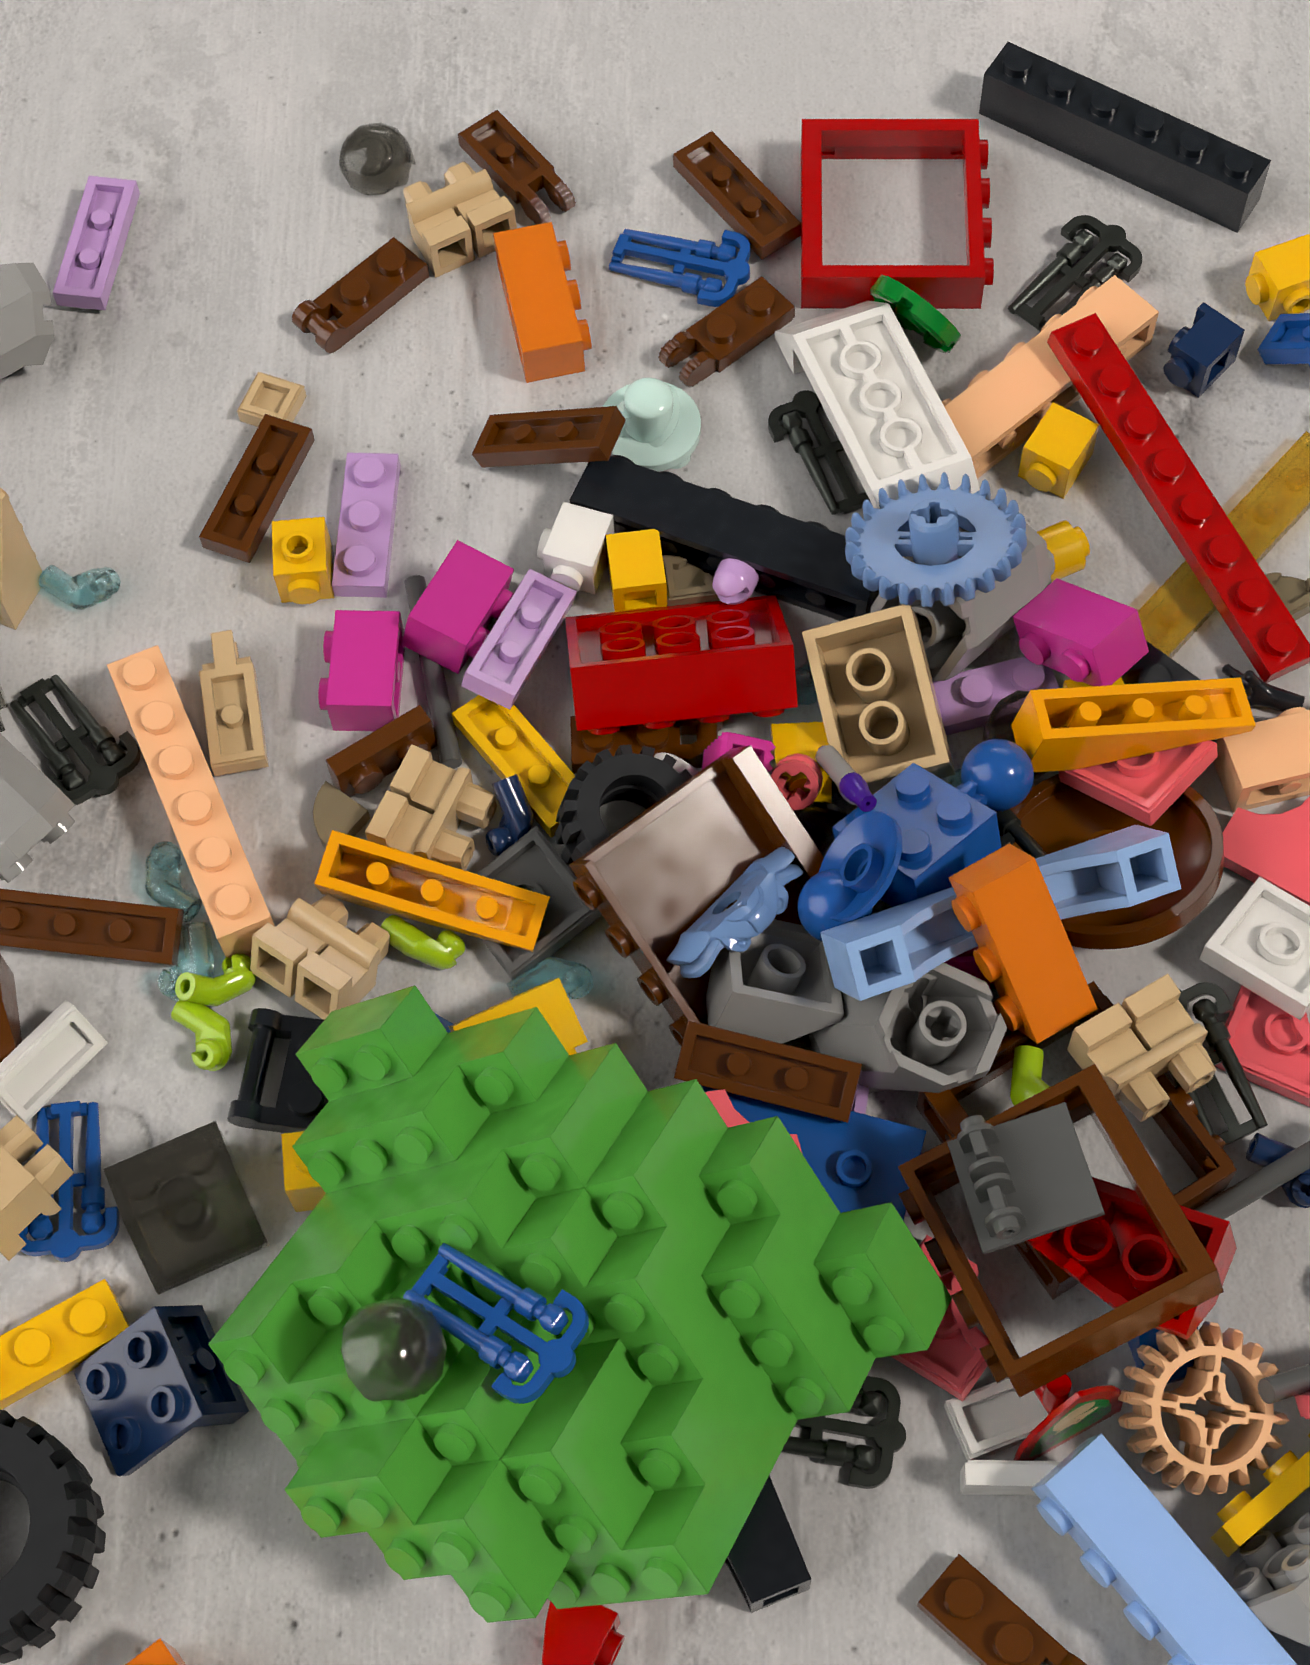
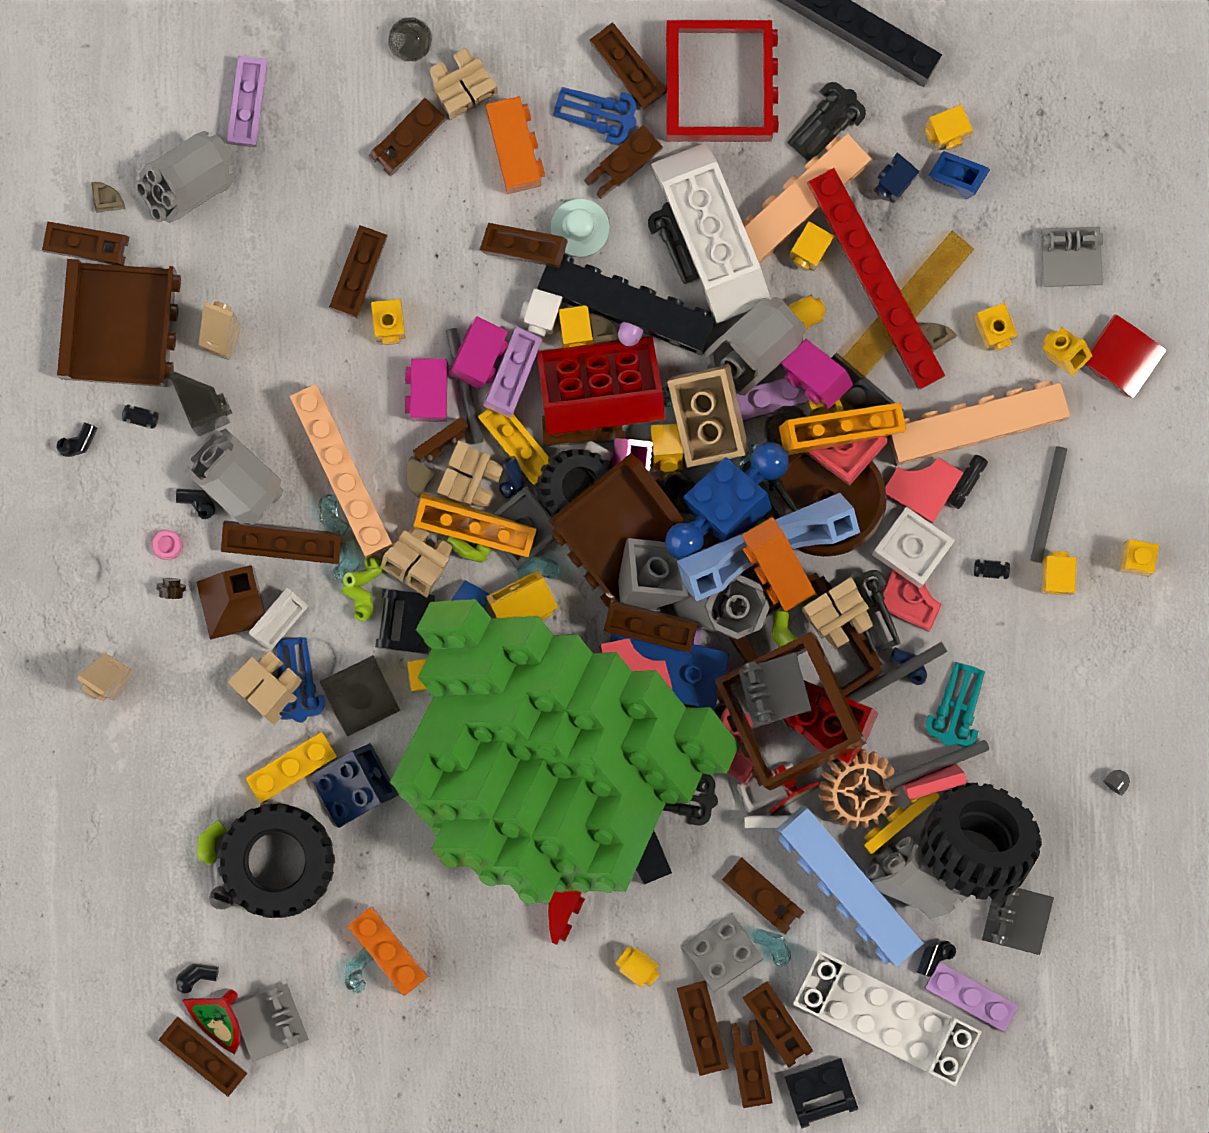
camera: 10 degrees left, 20 degrees up
(82, 589) = (264, 338): clear light blue arm -> none
(102, 778) = (290, 456): pearl dark grey piece -> none
(232, 709) = (356, 412): tan hinge -> none
(271, 397) = (360, 211): tan tile -> none
(366, 525) = (421, 293): lavender plate -> none
(393, 1349) = (481, 791): clear smoke hair -> none
(515, 166) = (493, 43): reddish brown hinge -> none
(555, 1356) = (556, 793): blue piece -> none
(759, 898) = (647, 536): medium blue piece -> none
(794, 764) = (664, 458): coral bush -> none
(850, 784) = (688, 466): piece -> none
(869, 852) = (703, 517): blue dish -> none
(916, 314) = (737, 163): green tile -> none
(928, 530) = (736, 309): medium blue gear -> none
(1264, 694) = (916, 397): black bar -> none

